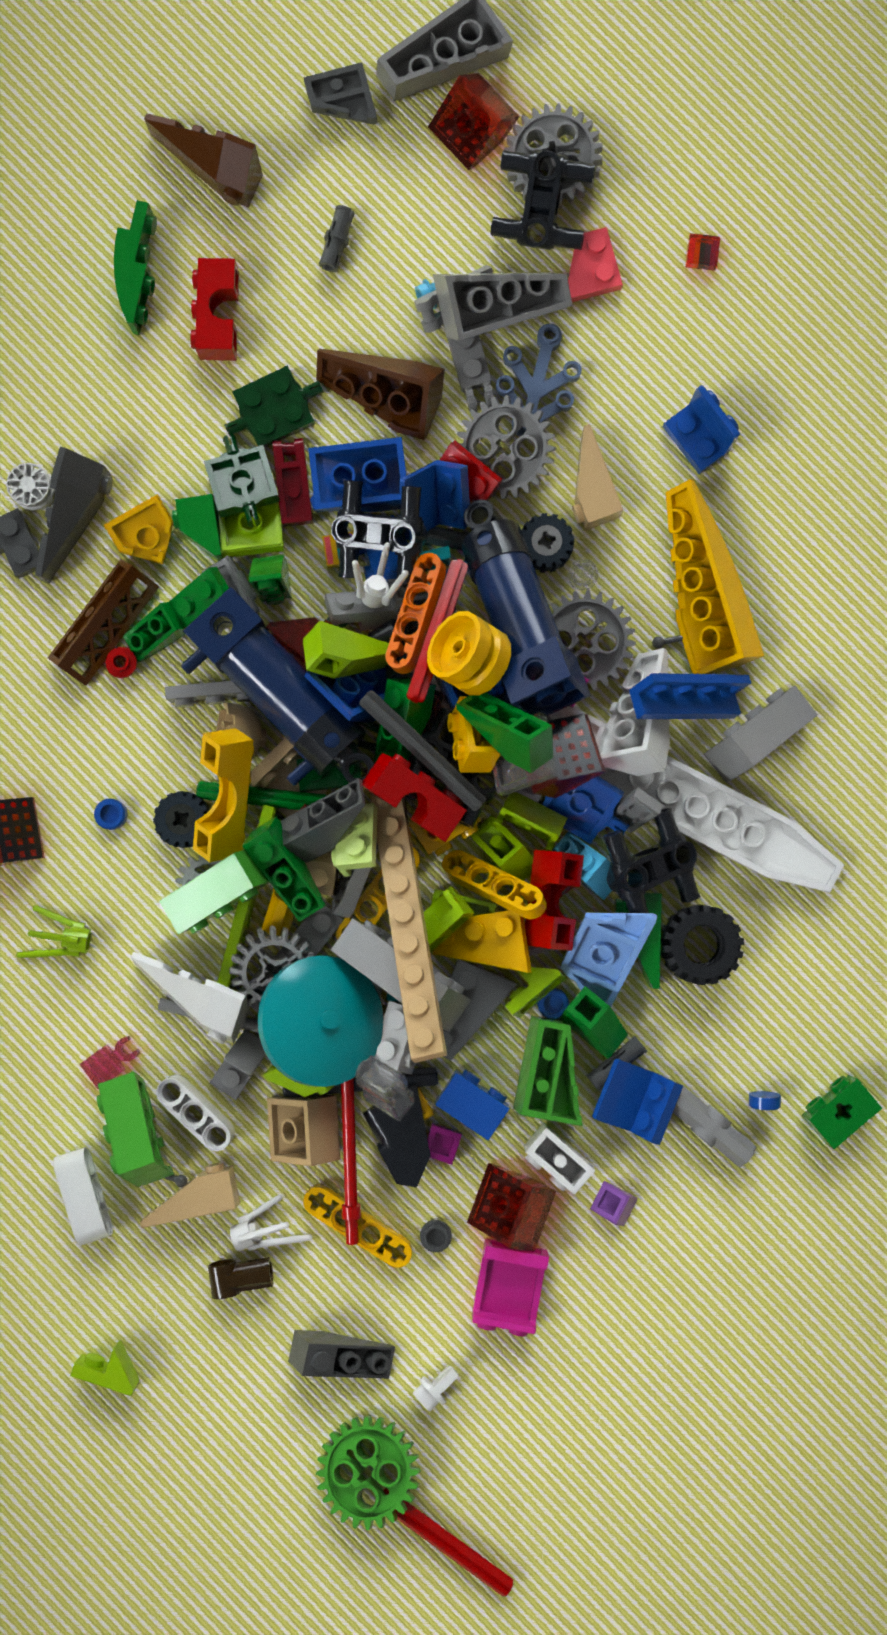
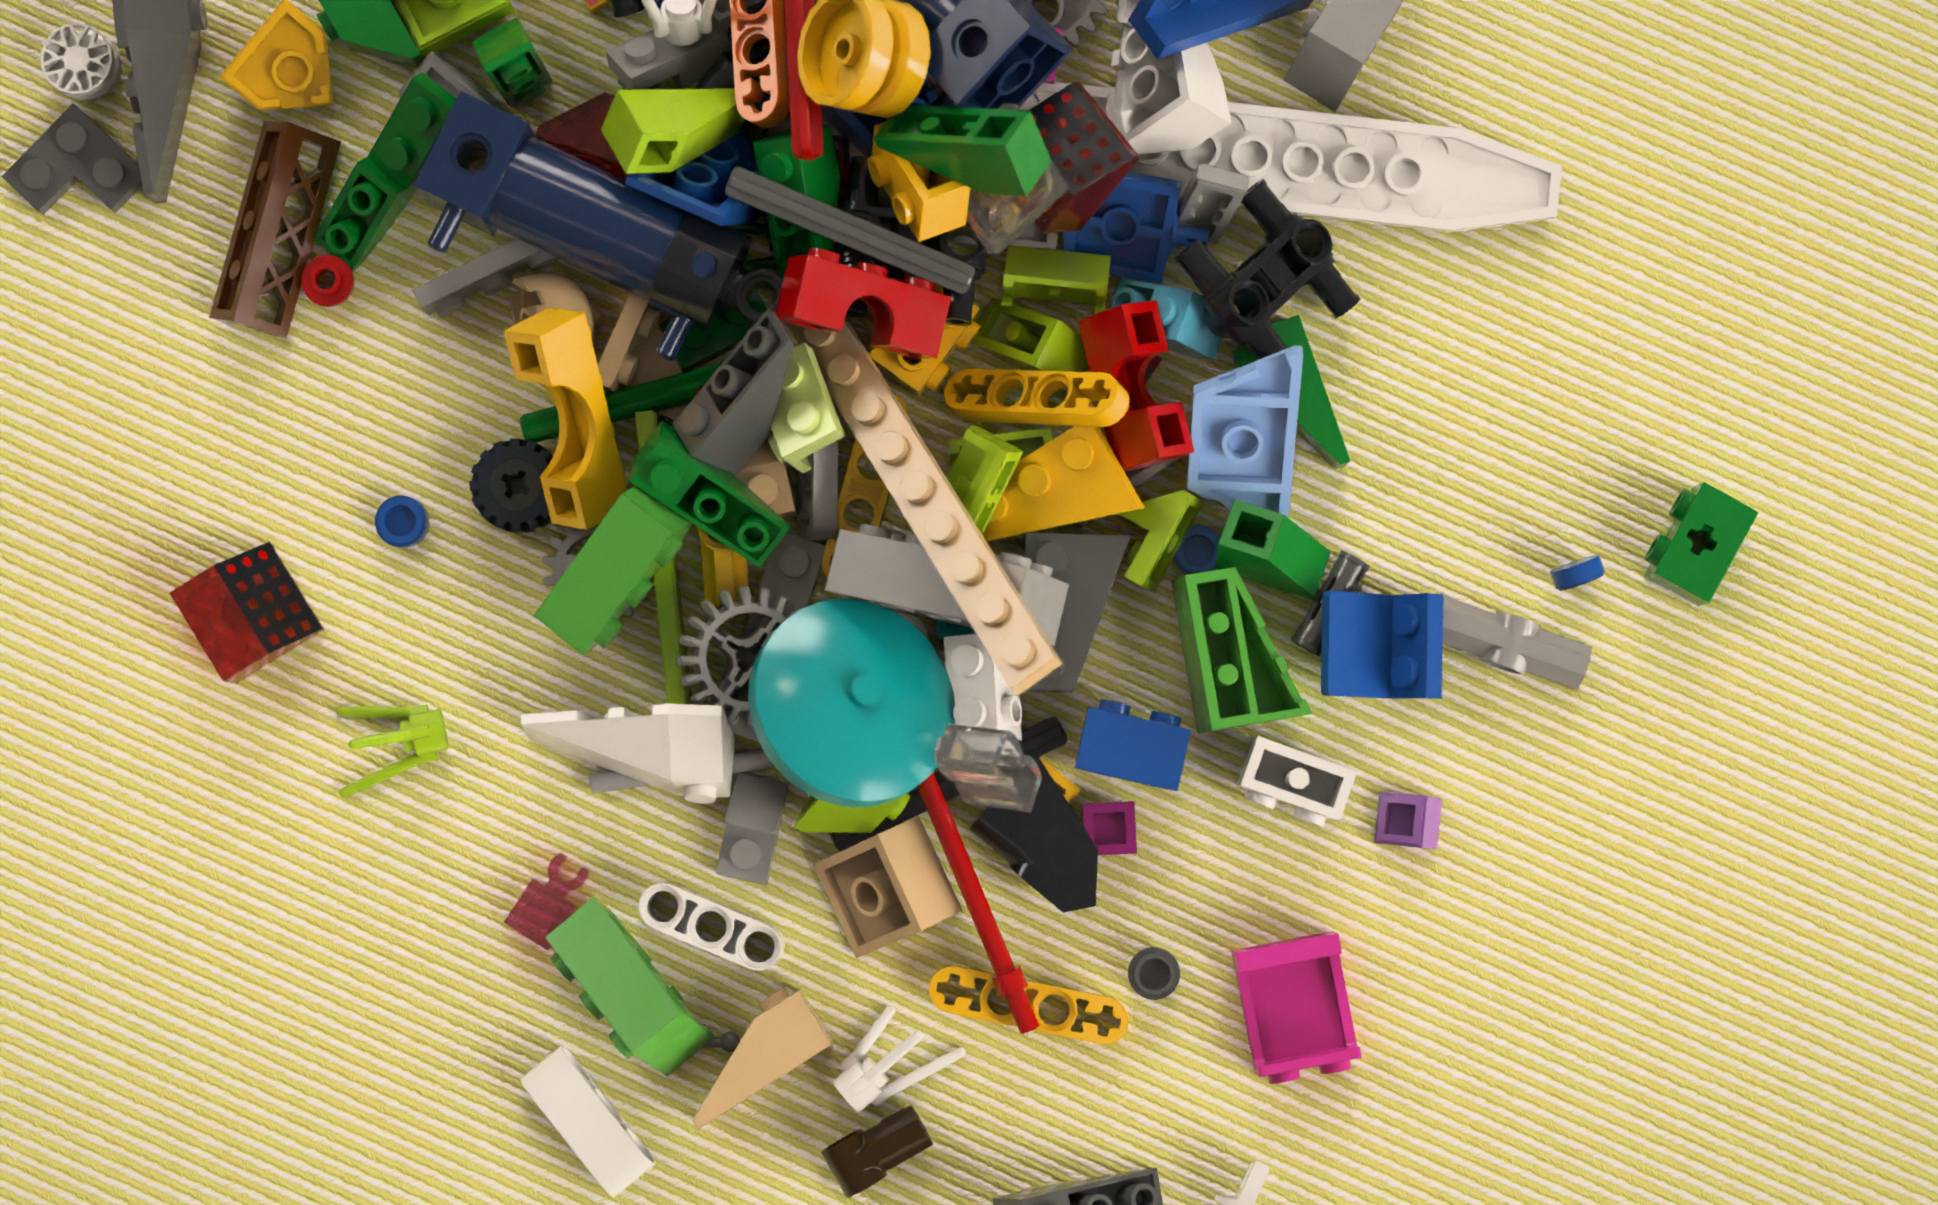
camera: 20 degrees left, 0 degrees up
(511, 1208) = (1252, 884): clear red slope -> none
(727, 944) = (1415, 335): black tyre -> none

